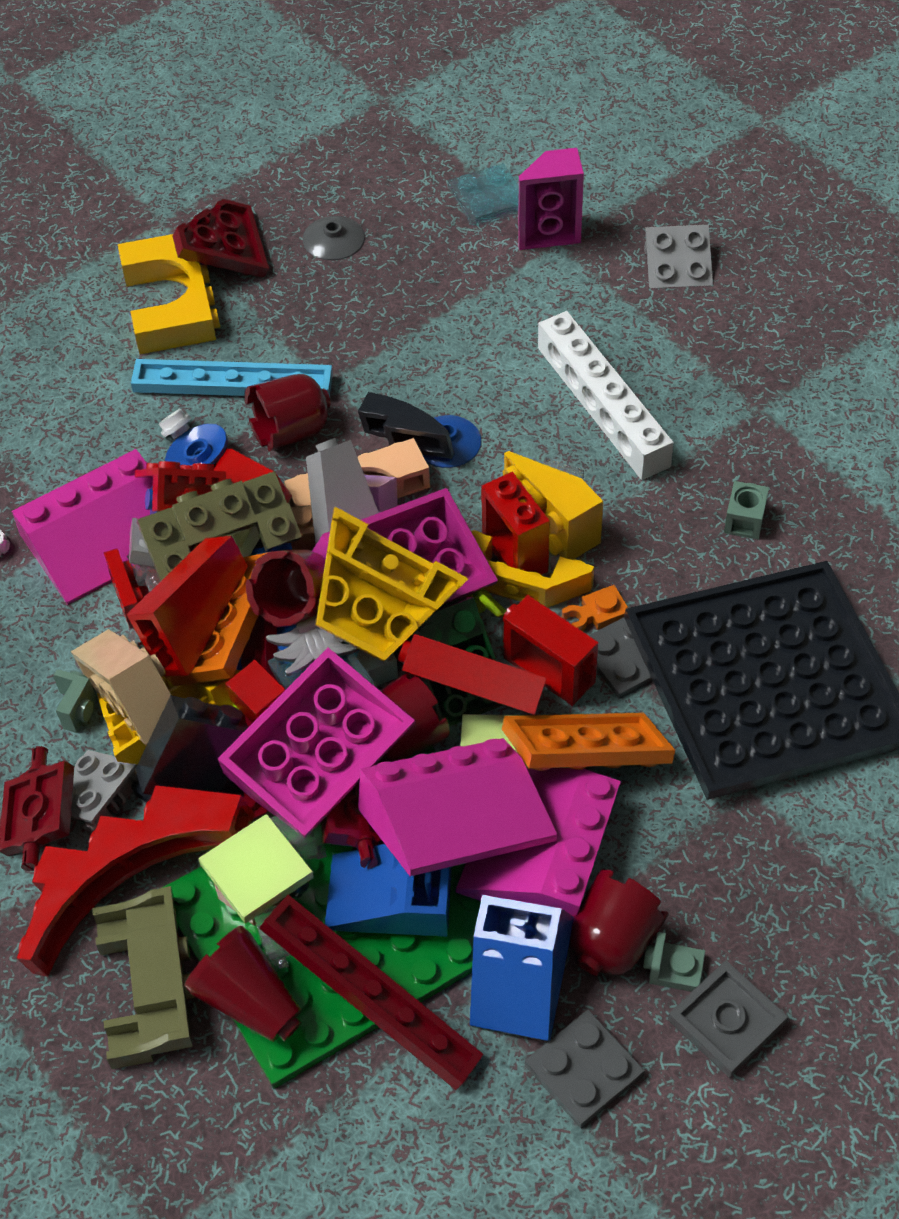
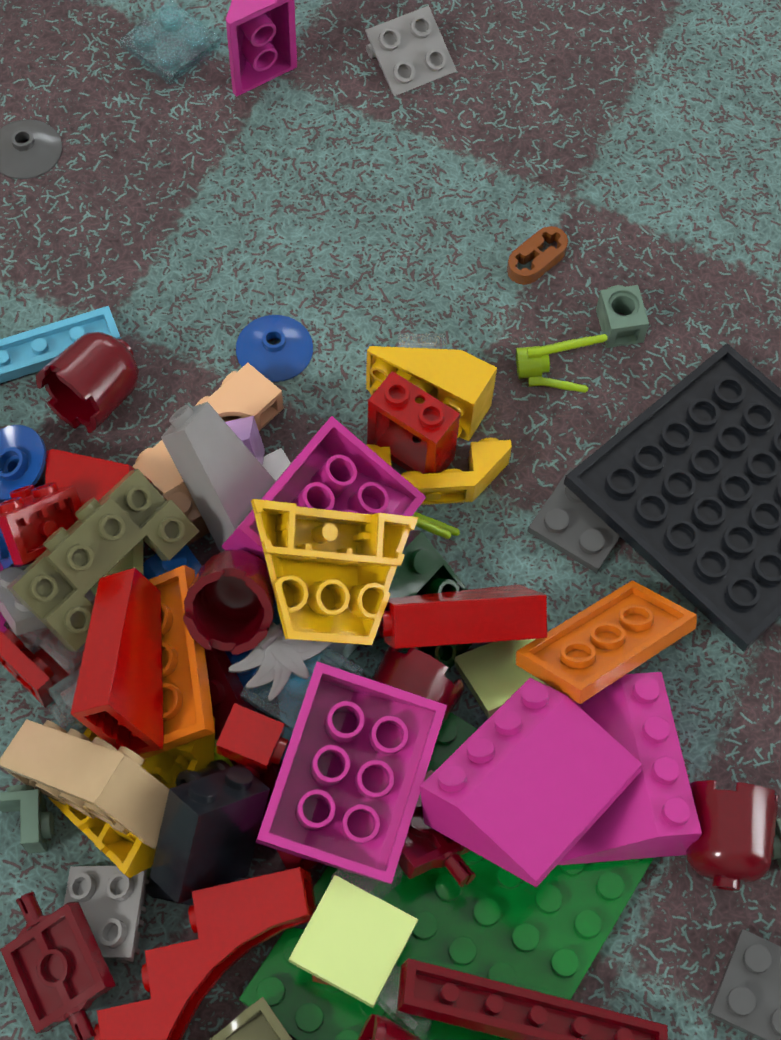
camera: 30 degrees left, 10 degrees up
(386, 897) = (490, 908): blue slope -> none
(402, 421) = (227, 349): black slope -> none
(518, 966) = (665, 921): blue slope -> none
(551, 648) = (513, 551): red window -> none
(599, 607) = (530, 480): orange plate -> none
(605, 395) = (417, 237): white brick -> none
(653, 519) = (535, 360): none -> lime plant
(702, 442) = (532, 249): none -> dark orange beam

